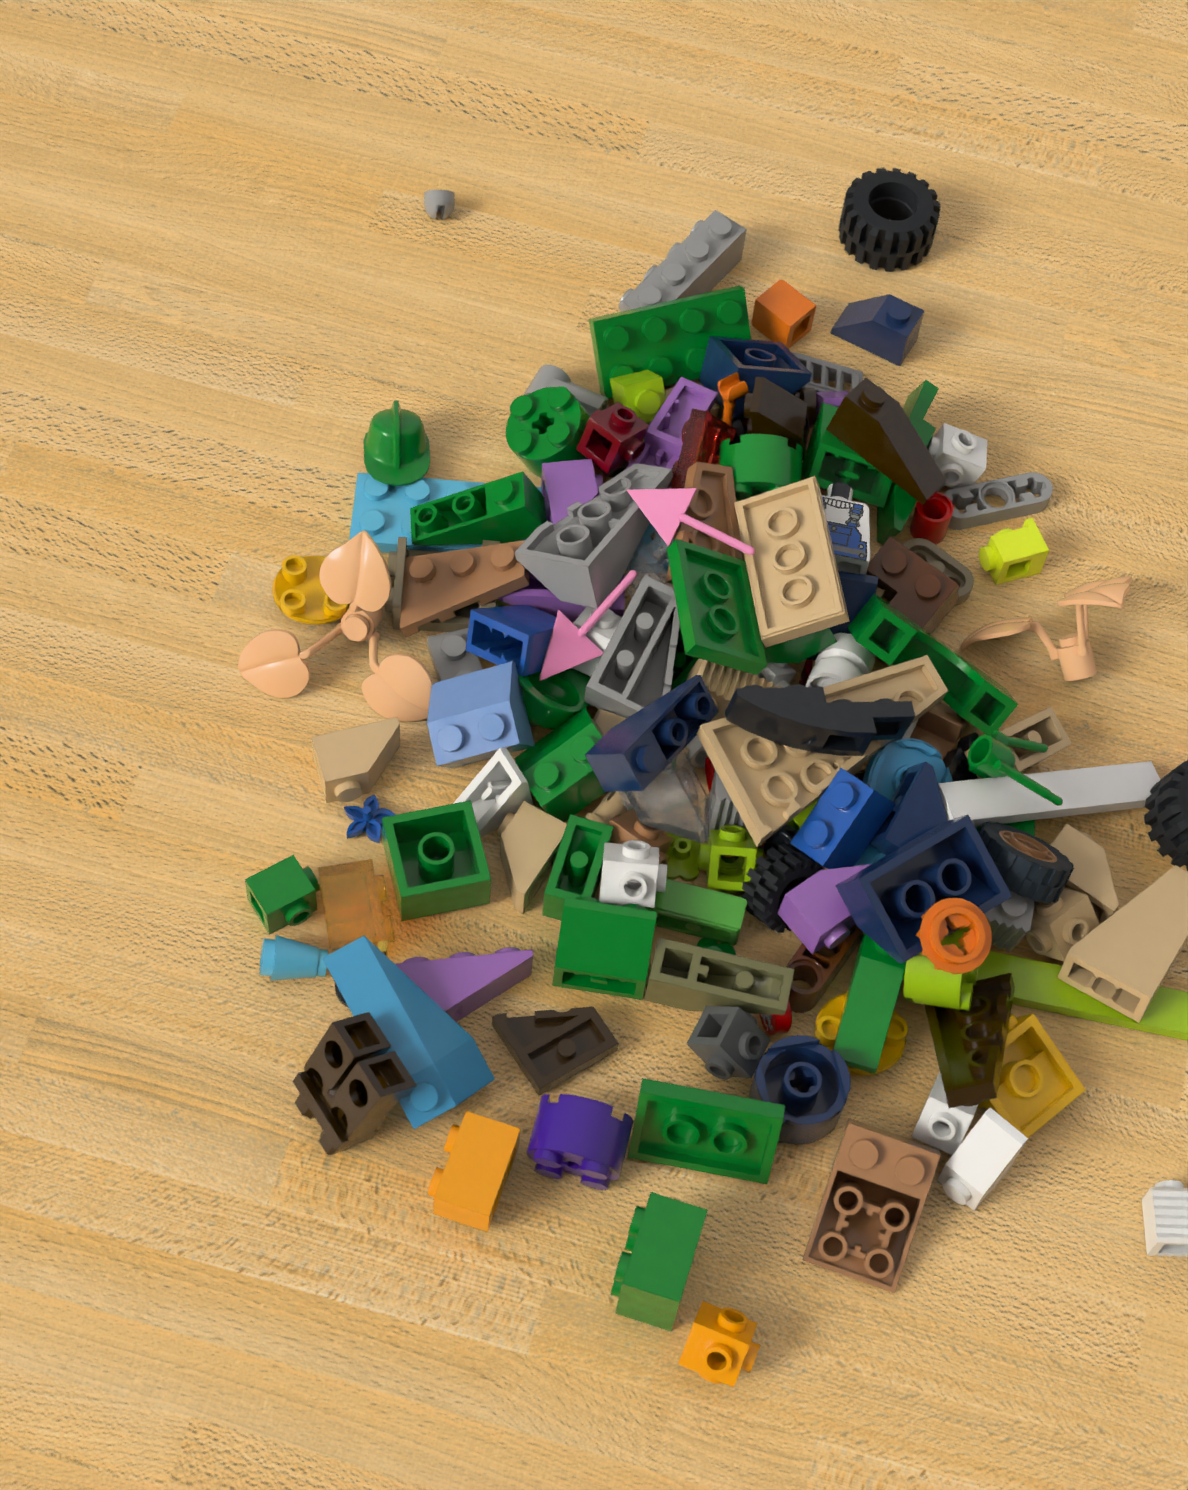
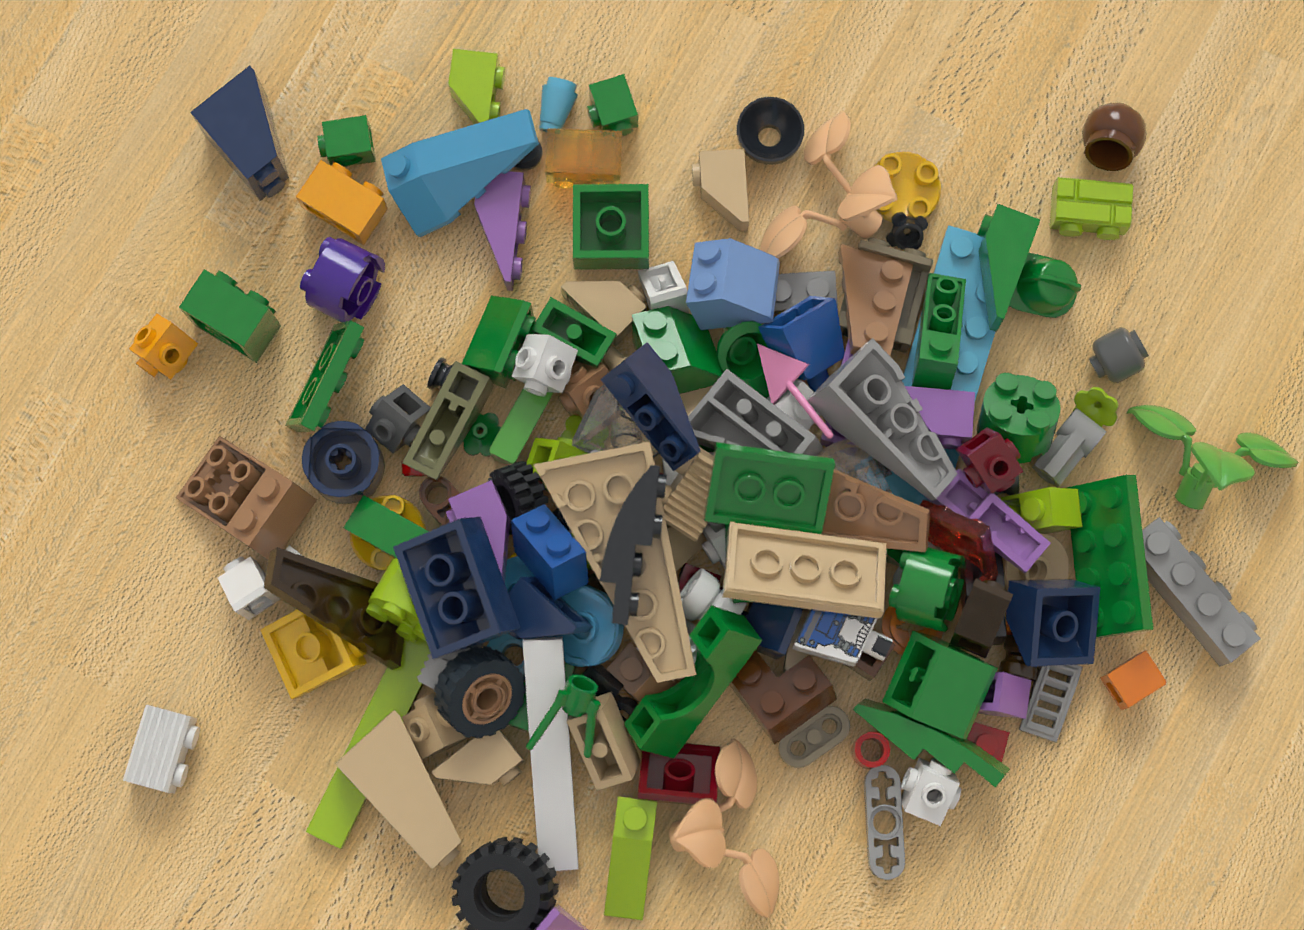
camera: 110 degrees right, 20 degrees up
(217, 400) = (1113, 136): none -> reddish brown piece
(279, 707) = (770, 113): none -> black piece
(281, 1050) = (474, 83): none -> lime slope
(299, 415) = (1091, 207): none -> lime brick
(351, 1082) = (419, 109): dark brown hips -> none
(367, 819) = (673, 190): blue plant -> none
(386, 468) = (1002, 256): none -> green slope
(393, 1188) = (347, 141): none -> green brick
(417, 1302) = (244, 133): none -> dark blue slope
(455, 369) = (1118, 355): none -> dark grey head
(514, 378) = (1097, 406): none -> lime plant
(555, 1043) = (437, 289): dark brown wing -> none
(569, 284) = (1215, 466): none -> bright green plant
(659, 1011) = (439, 374): none -> black bush
(667, 510) = (880, 475): bright pink piece -> none
(731, 390) = (1016, 581): orange hand -> none
(881, 326) = (1104, 771): dark blue slope -> none
(884, 436) = (930, 711): dark brown slope -> none
(911, 222) = (1265, 818): black tyre -> none
(973, 944) = (387, 582): orange gear -> none
(1014, 553) = (818, 814): neon yellow brick -> none
(1029, 672) = (682, 778): none -> dark red slope
(1116, 712) = (630, 858): none -> lime slope

